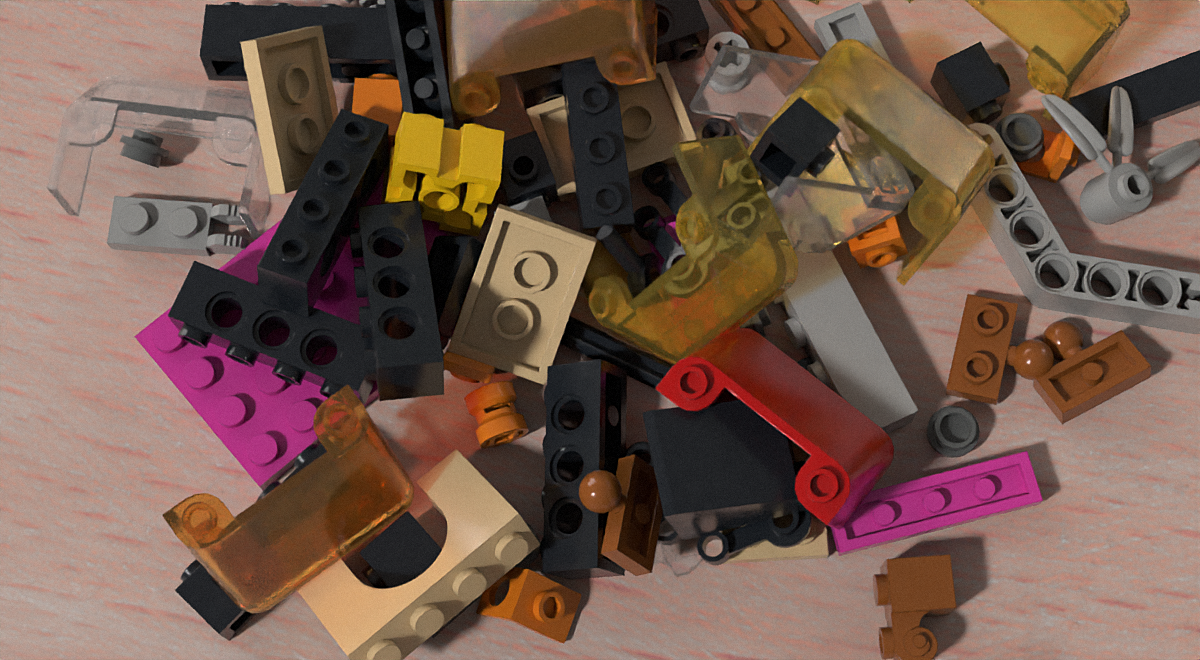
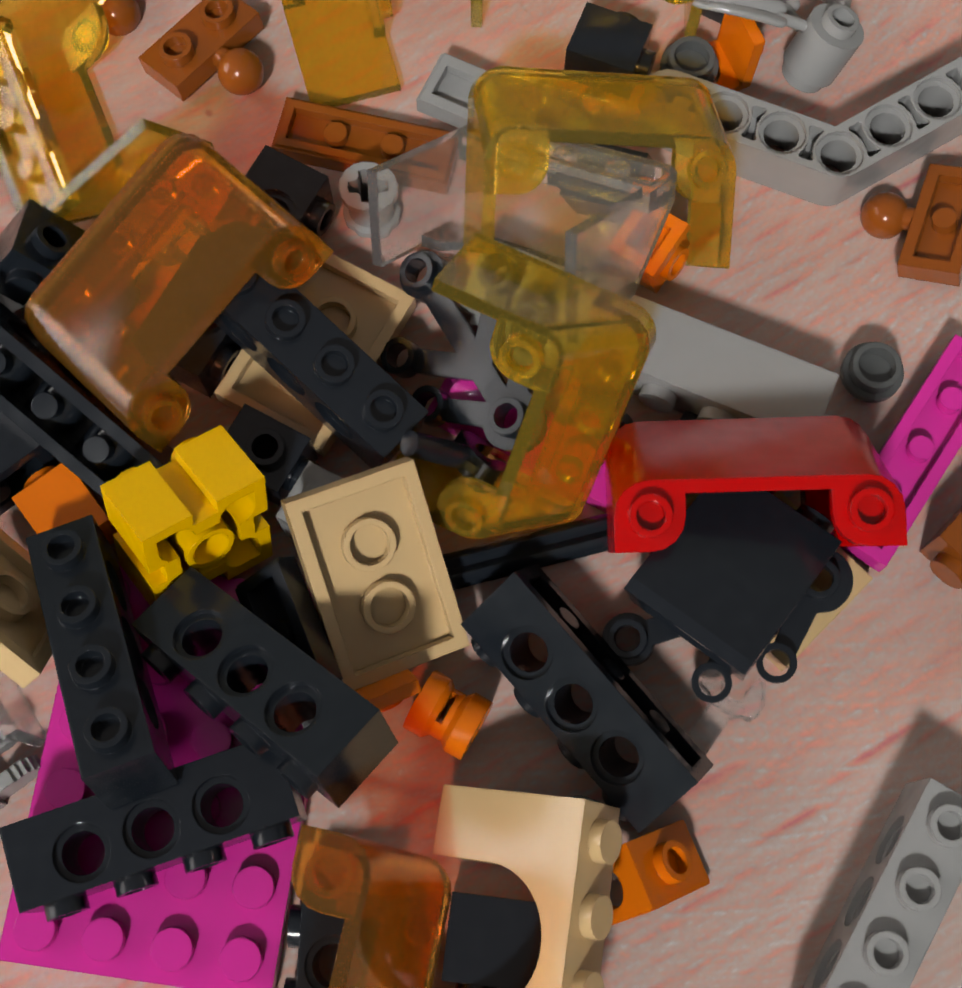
camera: 45 degrees left, 0 degrees up
(633, 512) = (672, 692): dark orange plate -> none
(795, 144) = (540, 198): black brick -> none
(985, 349) = (833, 278): dark orange plate -> none

